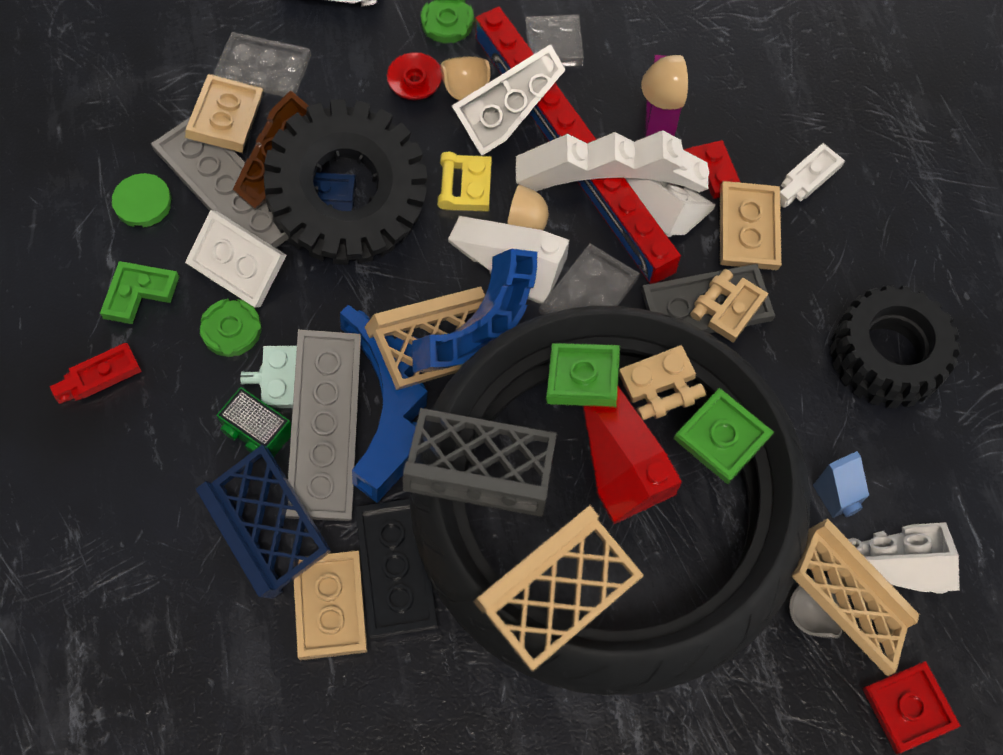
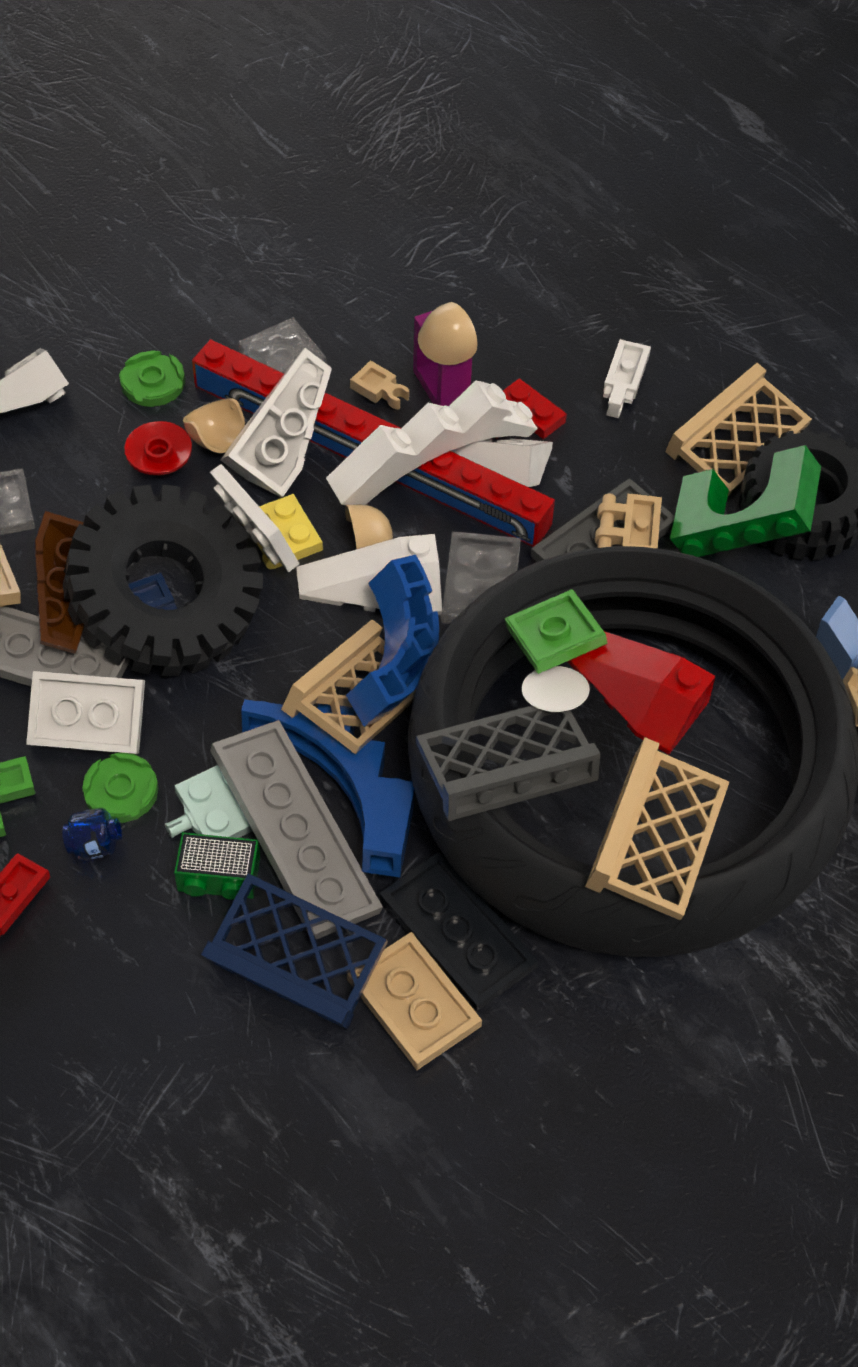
camera: 30 degrees left, 10 degrees down
(184, 354) = (91, 834): none -> clear blue head
(438, 165) = (253, 518): none -> white plate
(555, 424) = (555, 689): none -> white sticker
(610, 96) = (378, 383): none -> tan plate
(659, 374) = (626, 597): tan plate -> none
(723, 435) = (721, 624): bright green plate -> none
(750, 225) = (599, 445): tan plate -> none
(850, 355) = (779, 512): none -> green arch
(873, 239) = (724, 407): none -> tan fence

